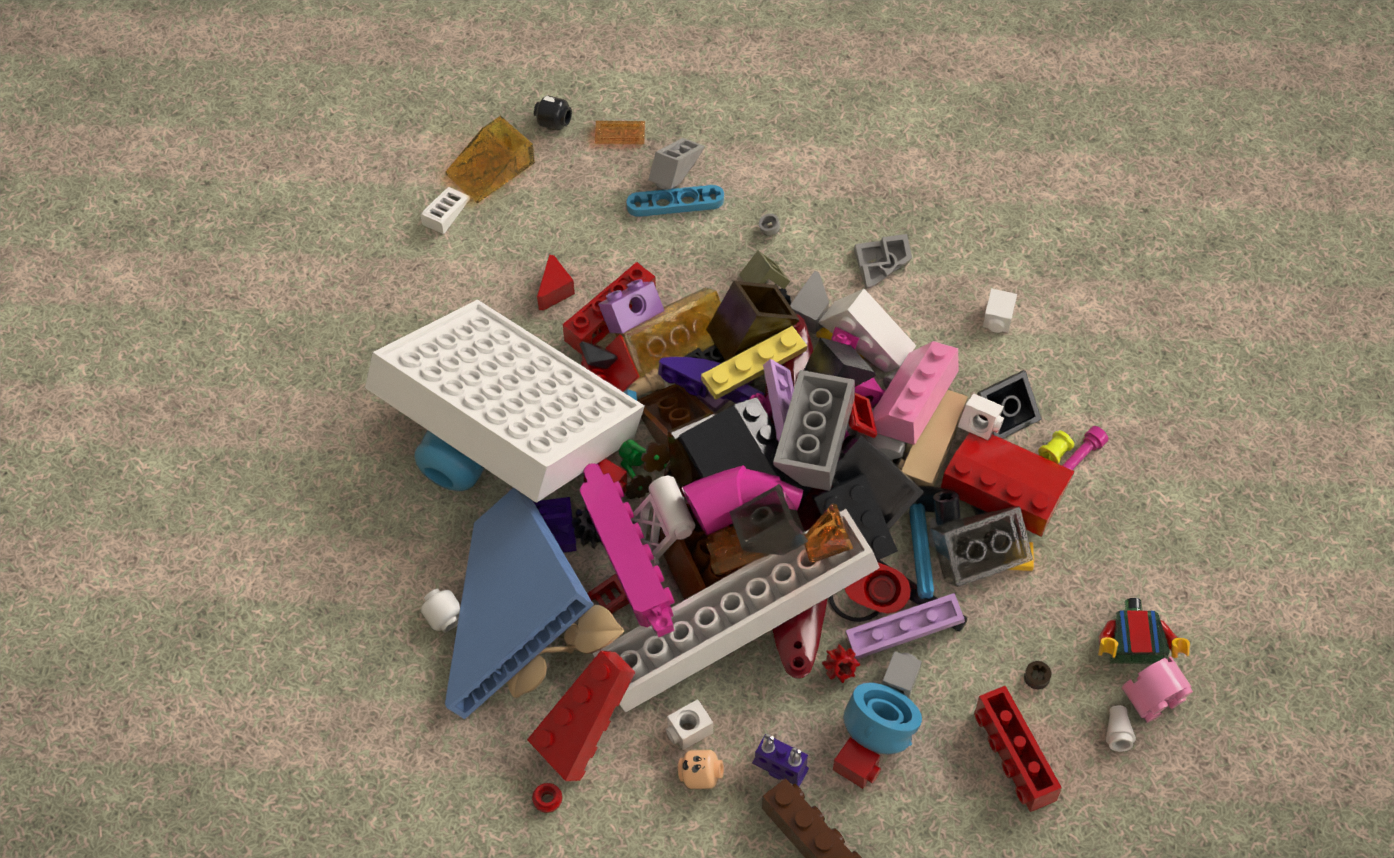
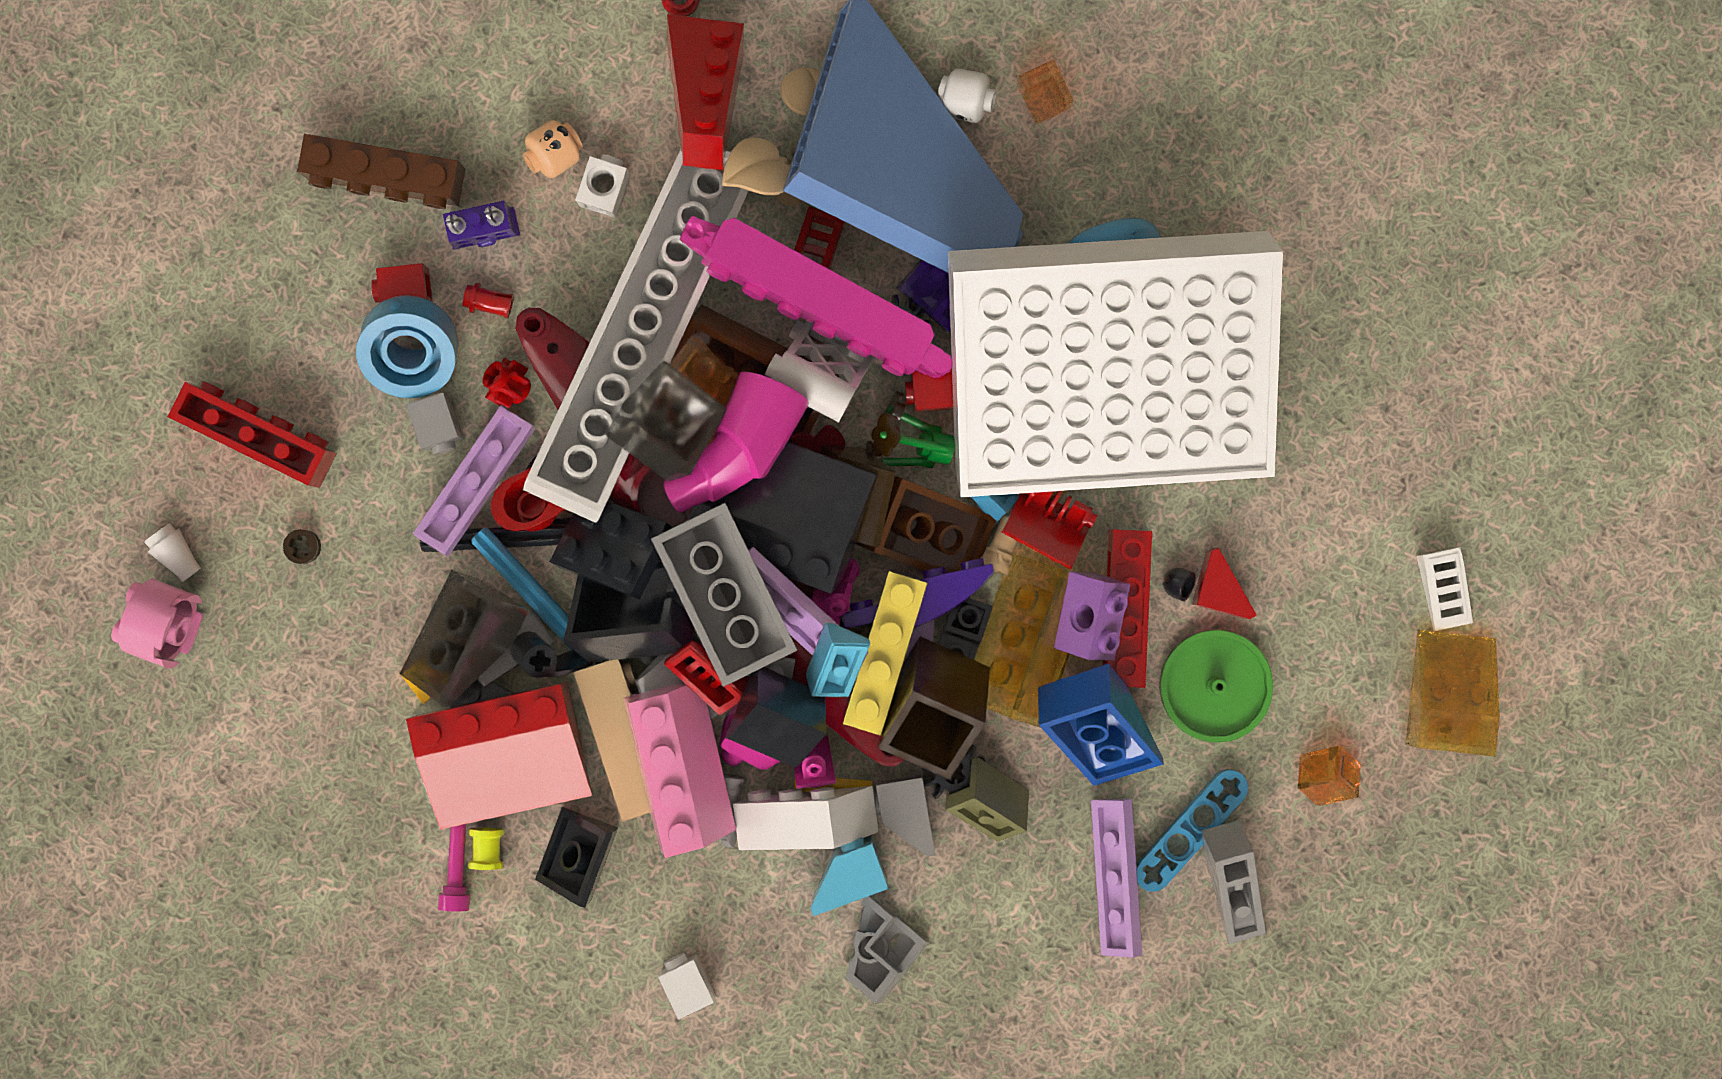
camera: 135 degrees right, 30 degrees up
(397, 580) = (1044, 92): none -> clear orange panel
(553, 112) = (1447, 829): black head -> none
(571, 304) = (1180, 583): none -> black hinge
(585, 173) = (1329, 775): none -> clear orange panel
(597, 355) = (1078, 526): black slope -> none
(599, 249) = (1216, 686): none -> bright green piece
(620, 132) = (1346, 876): clear orange tile -> none
(675, 264) = (1097, 725): none -> blue slope
(731, 205) = (1116, 877): none -> lavender plate
(767, 219) = (1052, 879): light grey hinge -> none
(782, 369) = (836, 662): none -> medium azure slope
(813, 720) = (487, 300): none -> red pin
(828, 536) = (585, 456): clear orange slope -> none
(879, 283) = (850, 876): none -> medium azure slope
(974, 424) = (585, 805): white brick -> none
(1139, 637) = (225, 674): torso -> none

